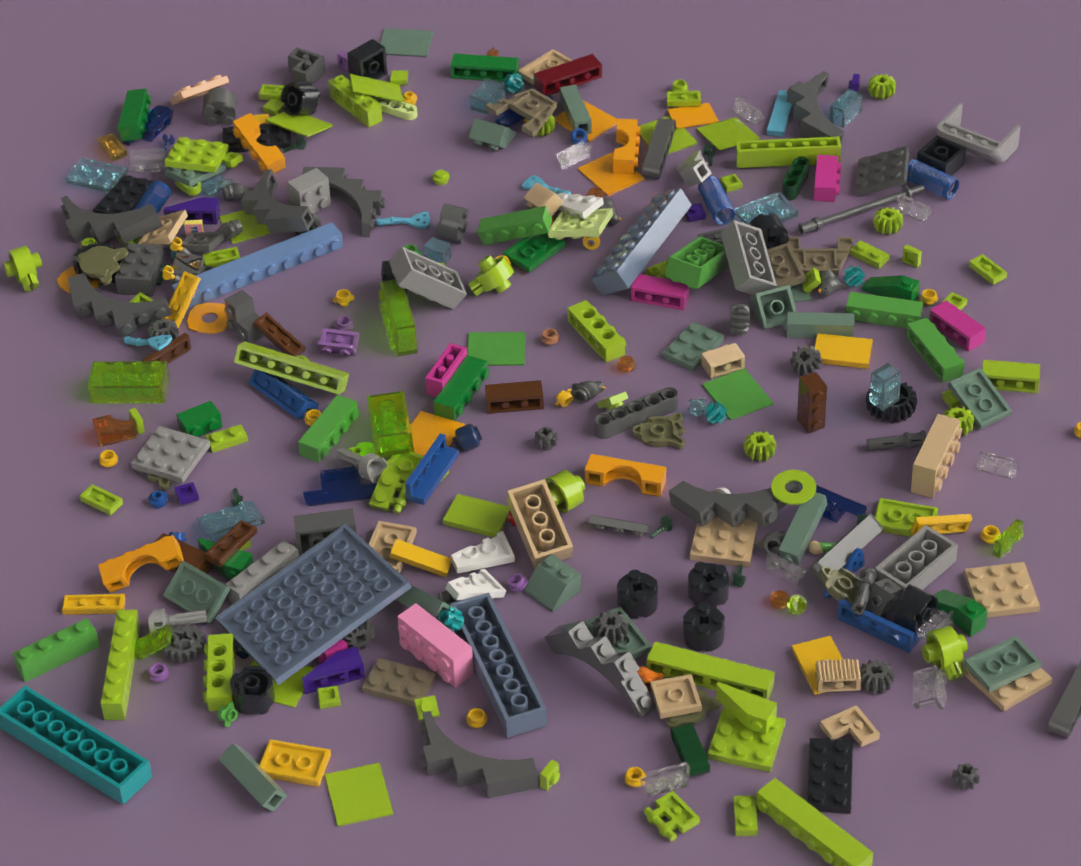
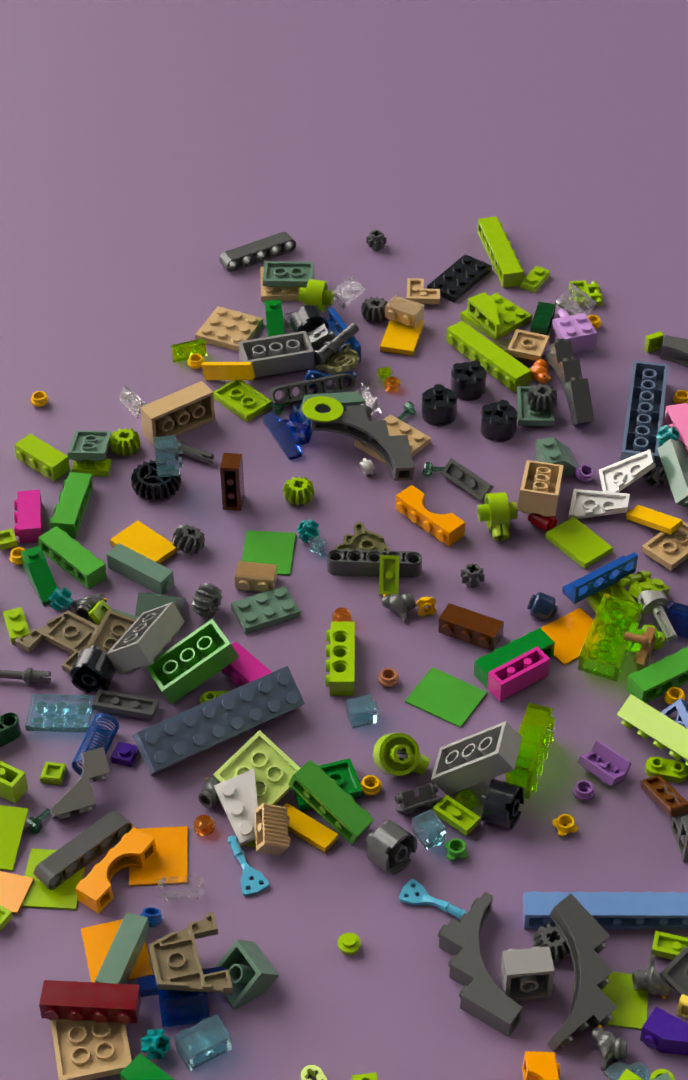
camera: 150 degrees left, 0 degrees up
(357, 430) = (647, 642): none -> medium nougat plate
(462, 262) = (426, 797): none -> dark grey hinge
(548, 302) = (361, 711): none -> clear light blue brick
(643, 742) = (575, 328): none -> lavender brick

